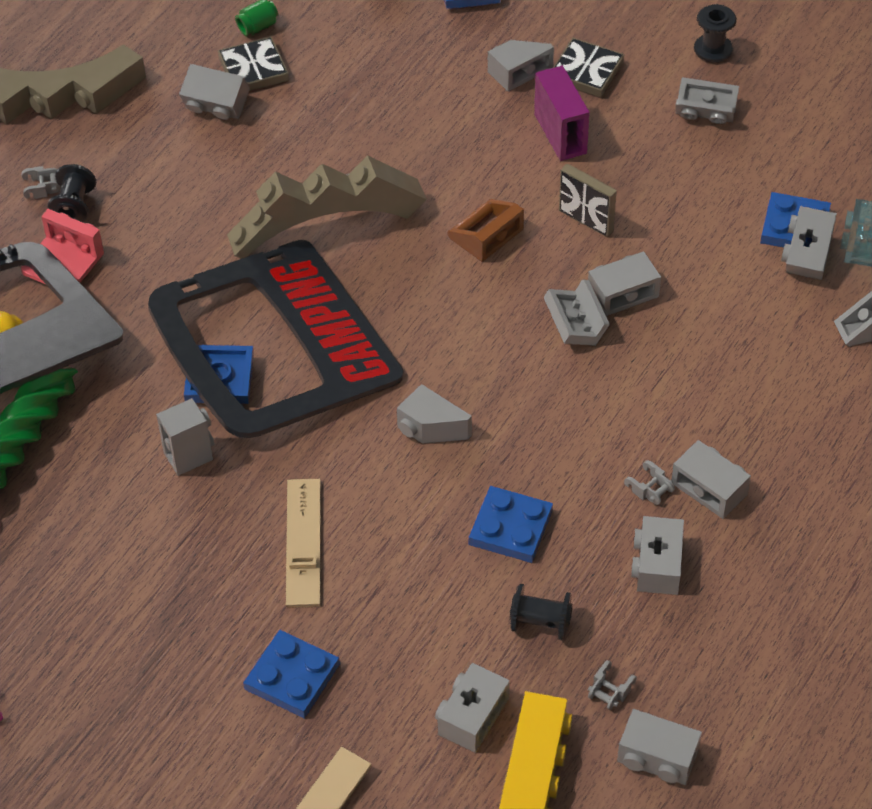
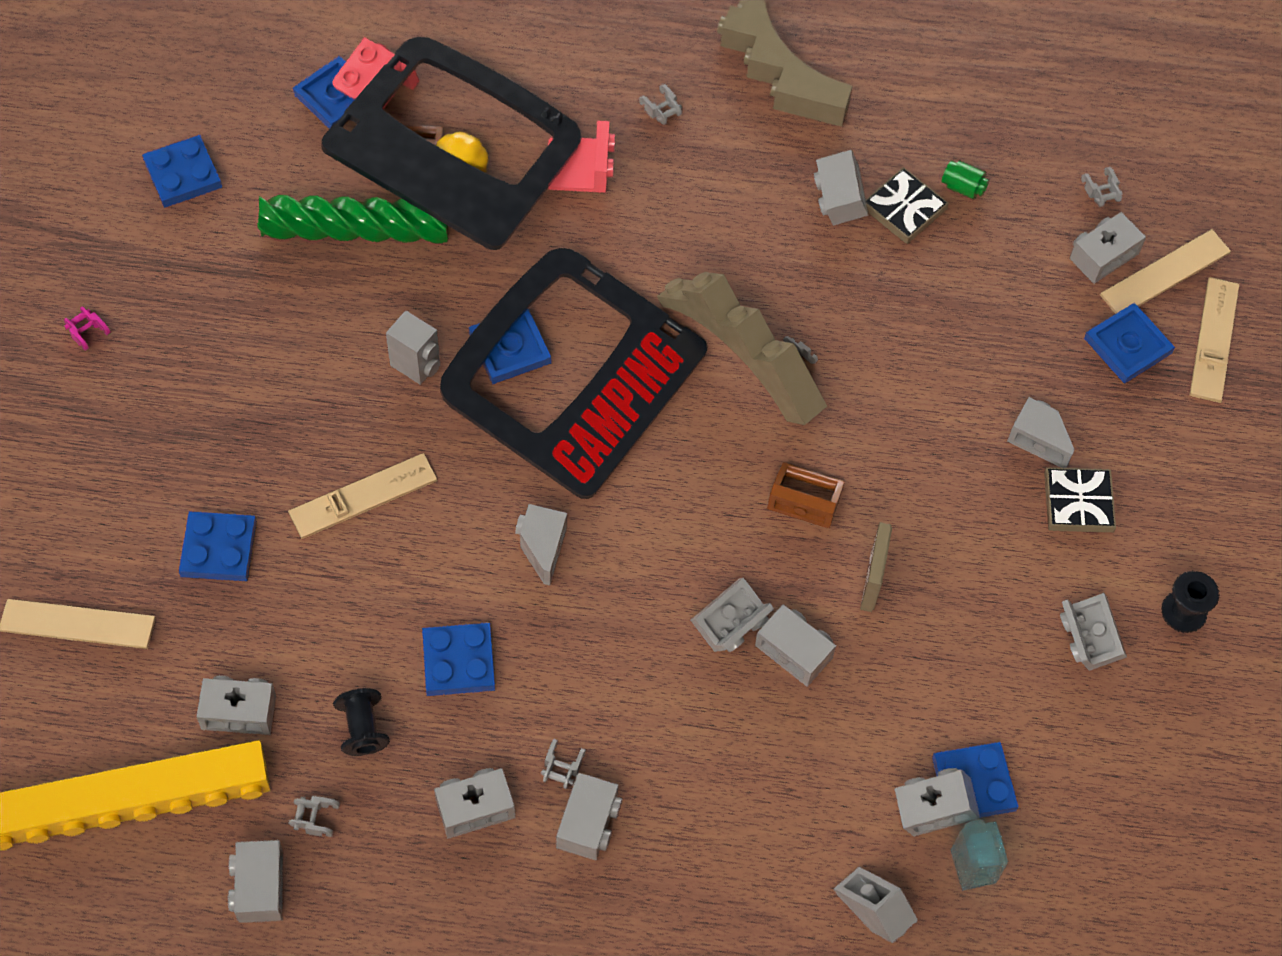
camera: 60 degrees right, 10 degrees up
(74, 183) = (653, 133): black hose -> none
(561, 113) = (982, 497): magenta brick -> none

